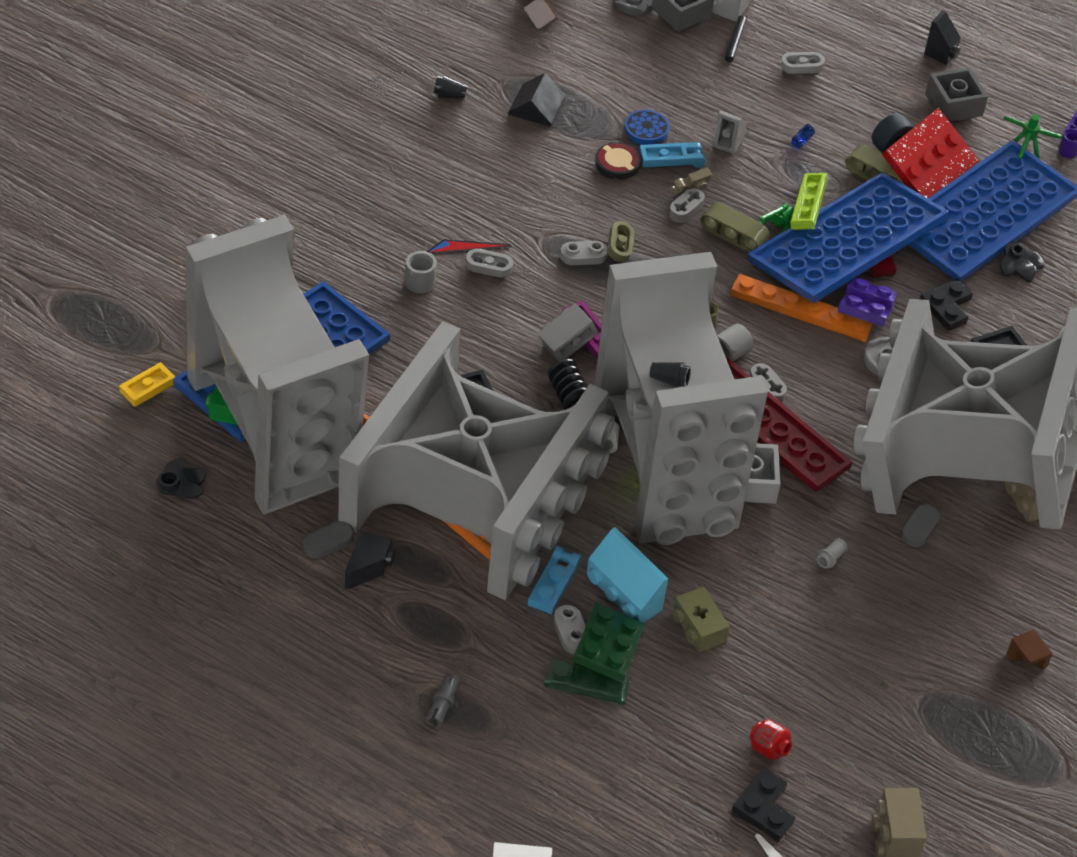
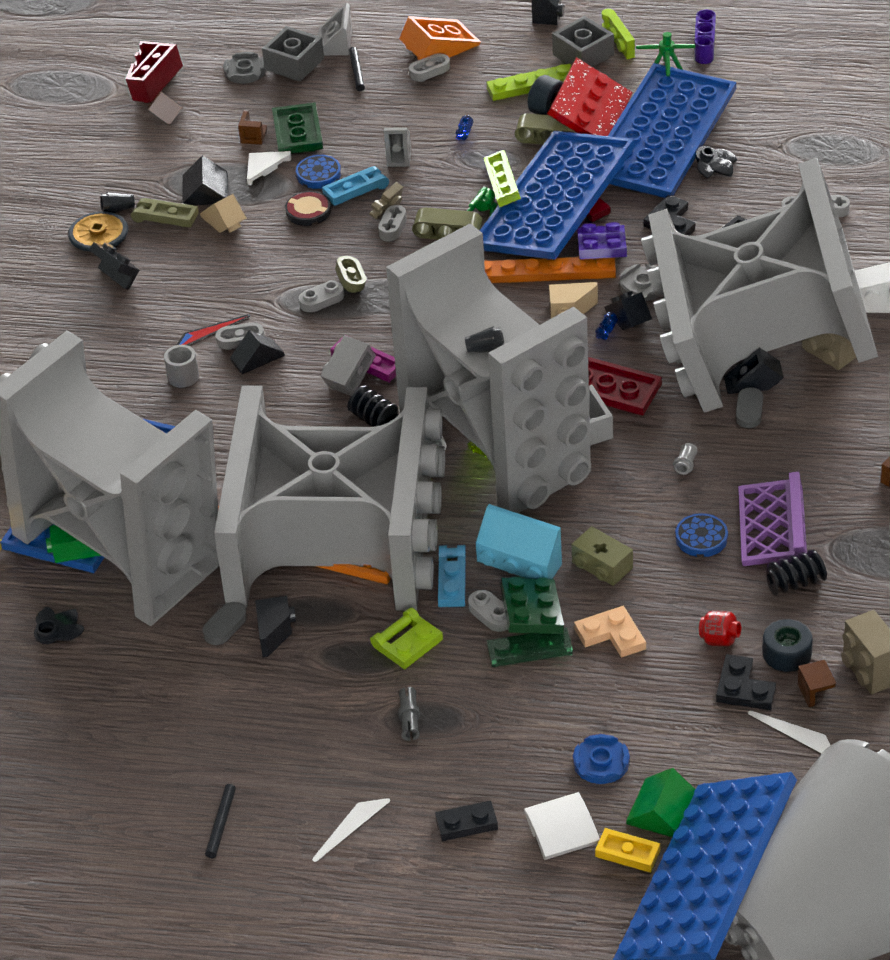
camera: 15 degrees left, 5 degrees down
(222, 732) = (220, 821): none -> black bar
(345, 781) = (354, 819): none -> white sticker
(414, 148) = (115, 264): none -> black bracket
(419, 110) = (97, 228): none -> pearl gold wheel
(439, 829) = (466, 820): none -> black plate
(482, 632) = (410, 645): none -> lime plate
(487, 115) = (165, 212): none -> olive plate
(495, 284) = (255, 352): none -> black slope
(537, 138) = (224, 214): none -> tan slope
(593, 822) = (601, 759): none -> blue tile
(601, 100) = (264, 163): none -> white tile
(605, 64) = (251, 131): none -> reddish brown panel
(649, 77) = (297, 128): none -> dark green plate
(676, 693) = (611, 625): none -> light nougat plate
(806, 636) = (701, 535): none -> blue tile
(809, 349) = (578, 295): none -> tan slope
(825, 35) = (436, 36): none -> orange slope
(825, 784) = (787, 645): none -> black wheel
(830, 387) = (607, 324): none -> clear blue piece
(832, 831) = (814, 678): none -> reddish brown panel
(856, 380) = (629, 309): none -> black slope
(872, 712) = (794, 570): none -> black piece
(877, 110) = (521, 83): none -> lime plate
(899, 664) = (794, 515): none -> medium lavender fence
(945, 493) = (757, 371): none -> black slope
(997, 96) = (622, 37): none -> lime plate

